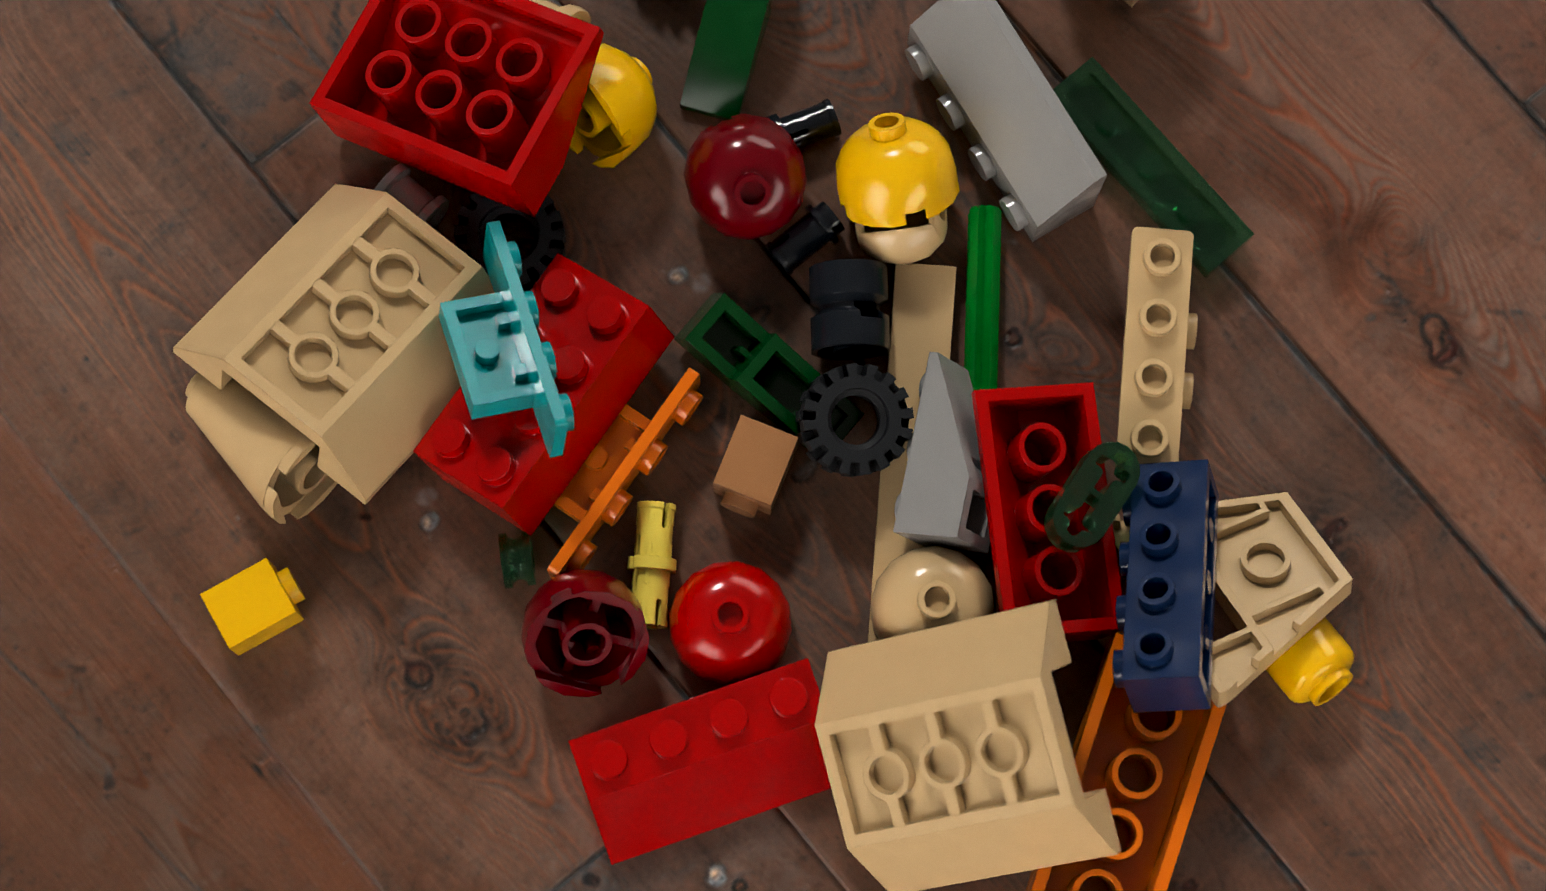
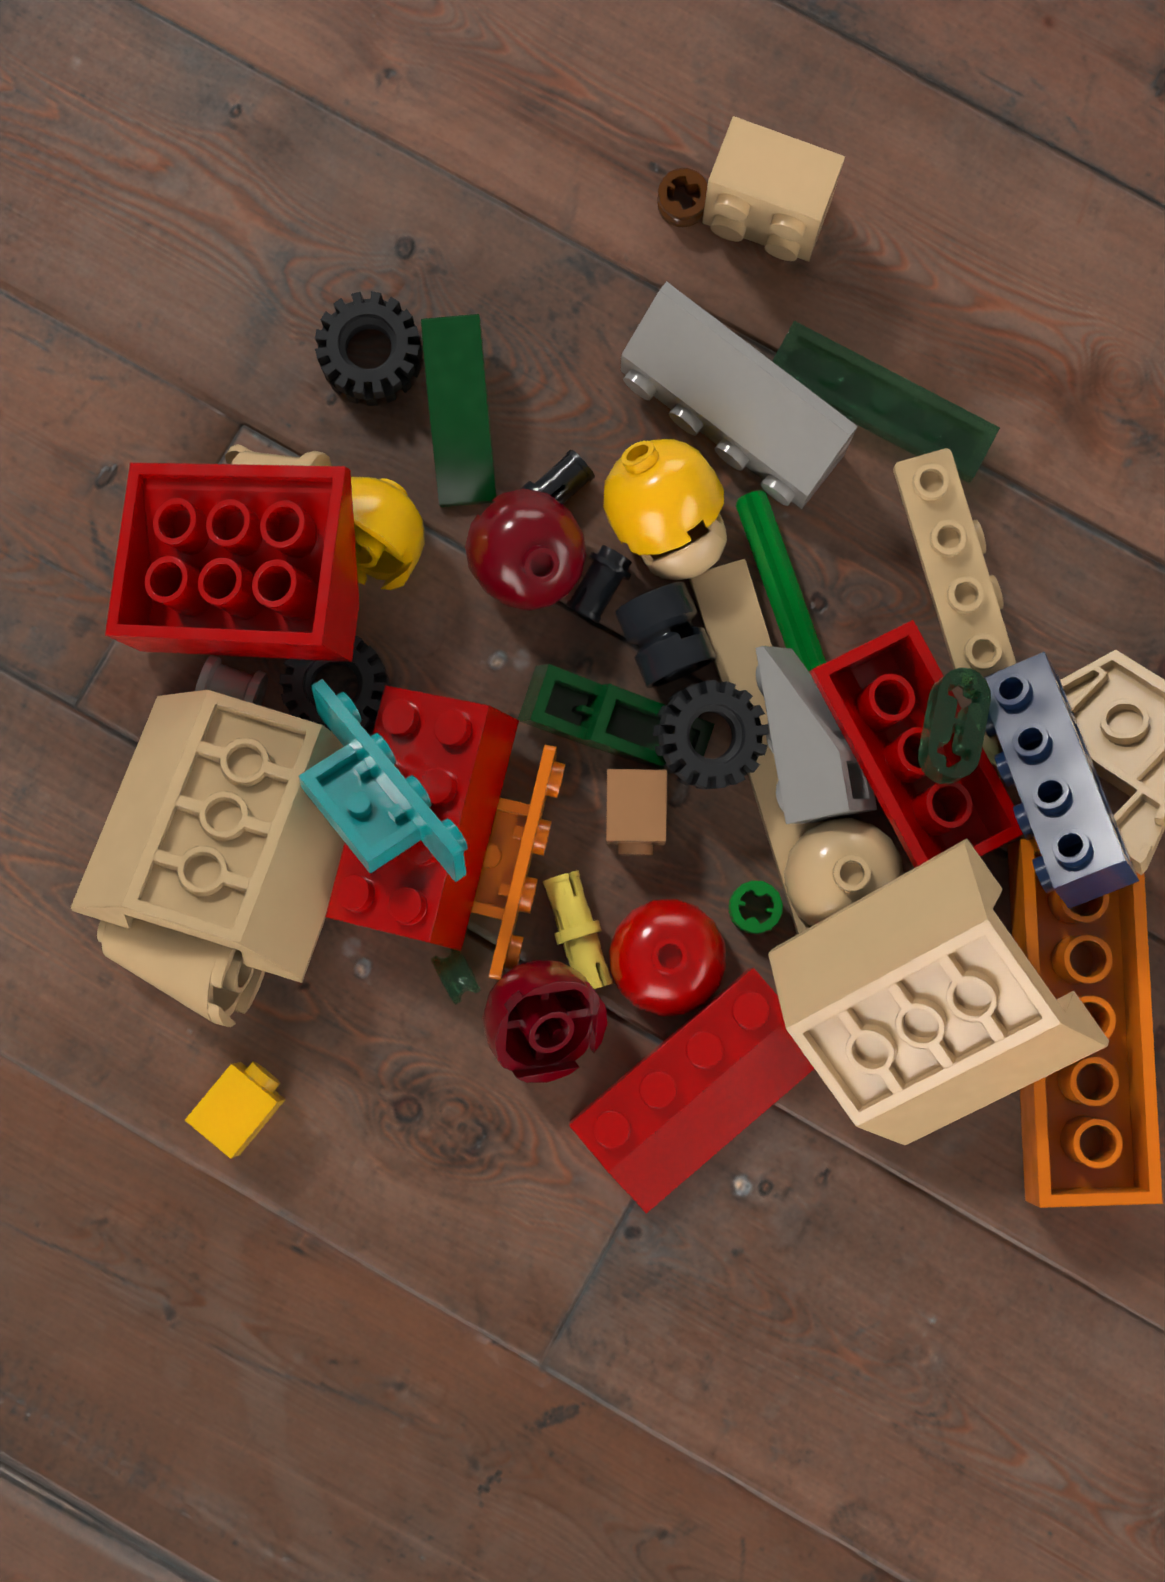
camera: 15 degrees left, 5 degrees up
(846, 592) = (758, 889): none -> green bush

